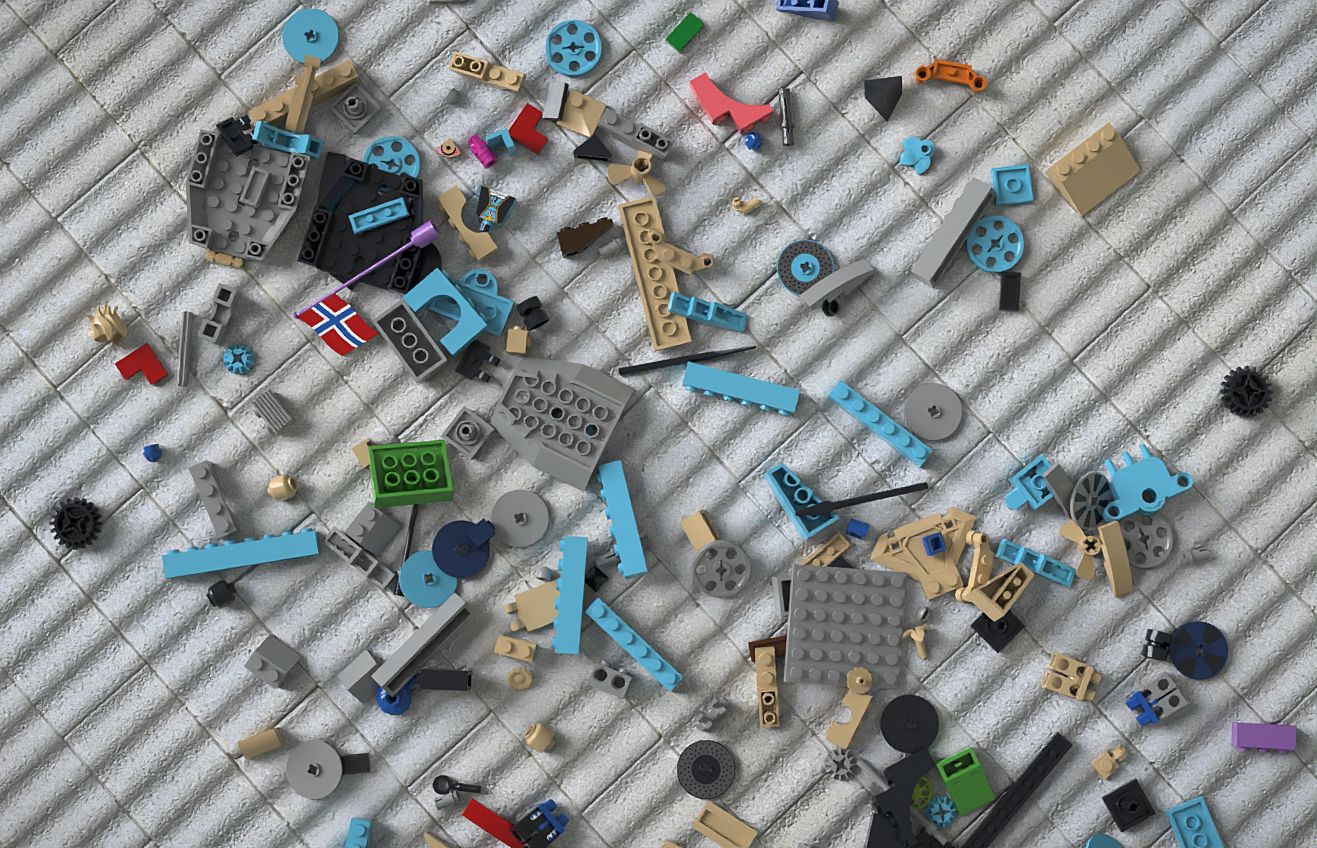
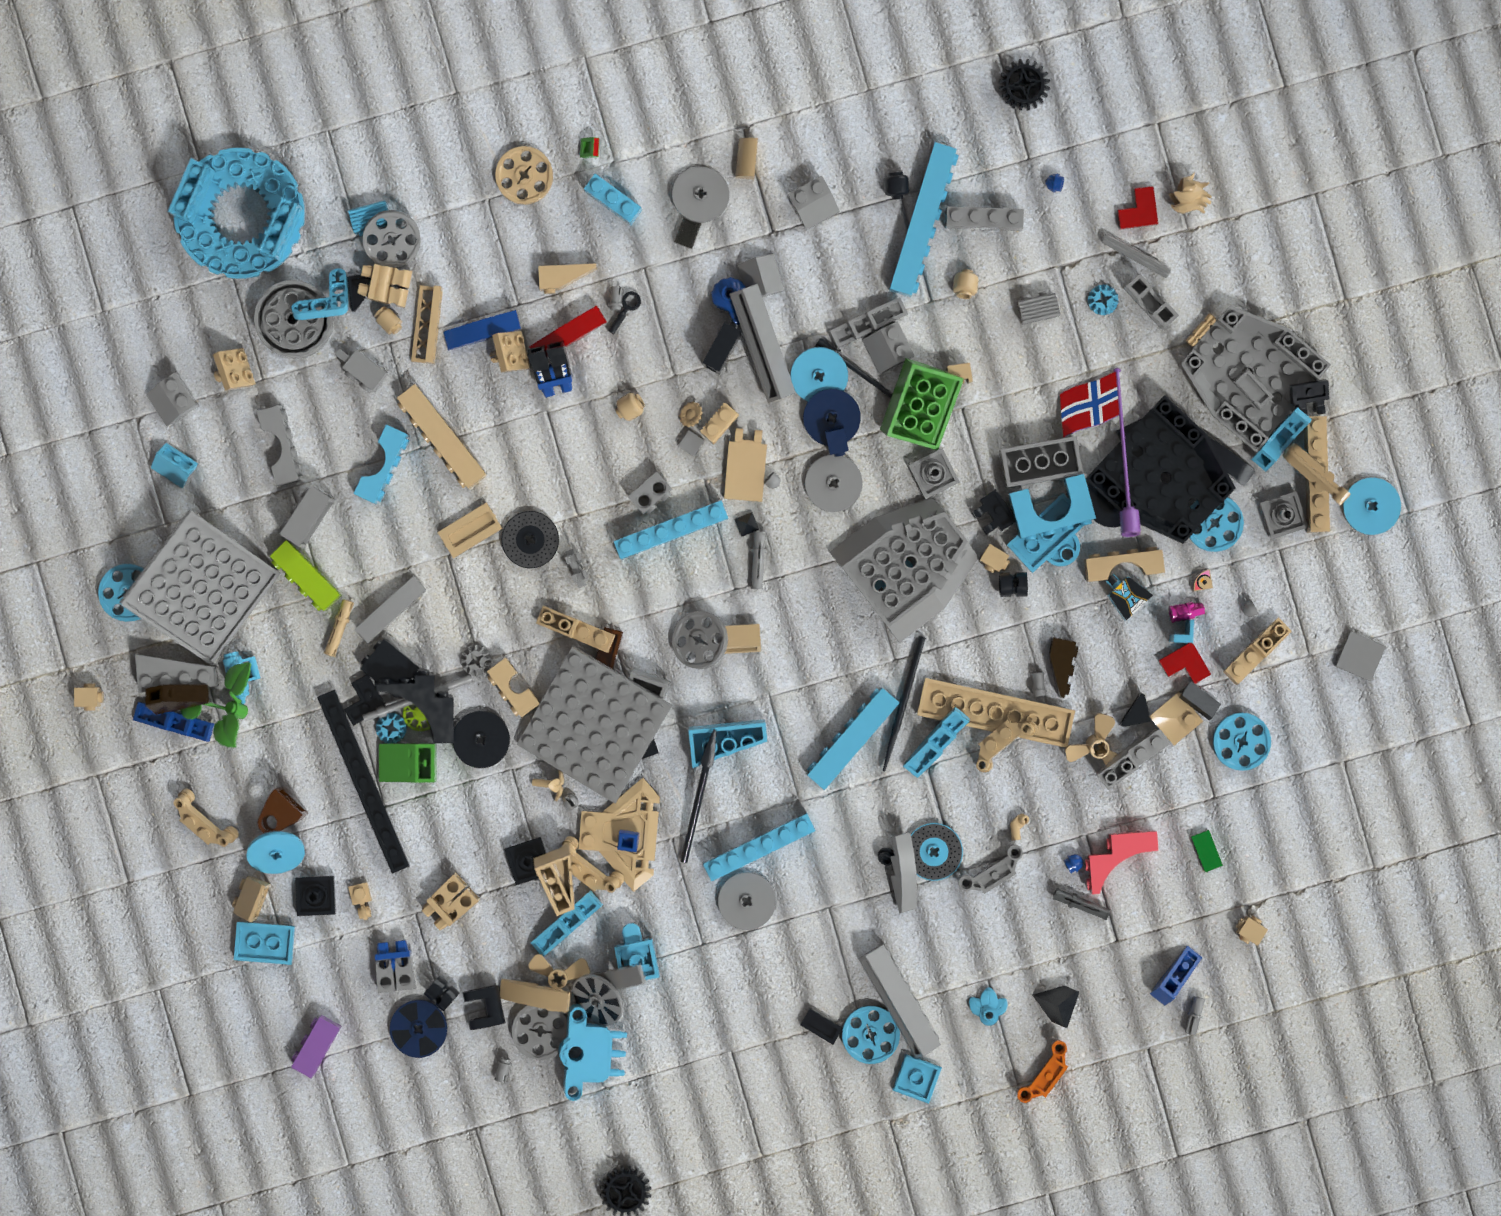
camera: 110 degrees right, 5 degrees up
(379, 215) = (1170, 488): medium azure tile -> none
(546, 665) = (691, 443): none -> light grey tile
(571, 595) = (741, 495): medium azure brick -> none
(623, 520) = (786, 574): medium azure brick -> none
(797, 204) = (995, 874): none -> light grey plate
(828, 551) = (667, 743): tan tile -> none
(857, 529) = (675, 780): blue brick -> none
(859, 680) = (540, 713): tan piece -> none
(1094, 169) = (894, 1159): tan slope -> none
(1142, 593) = (492, 1004): none -> black connector

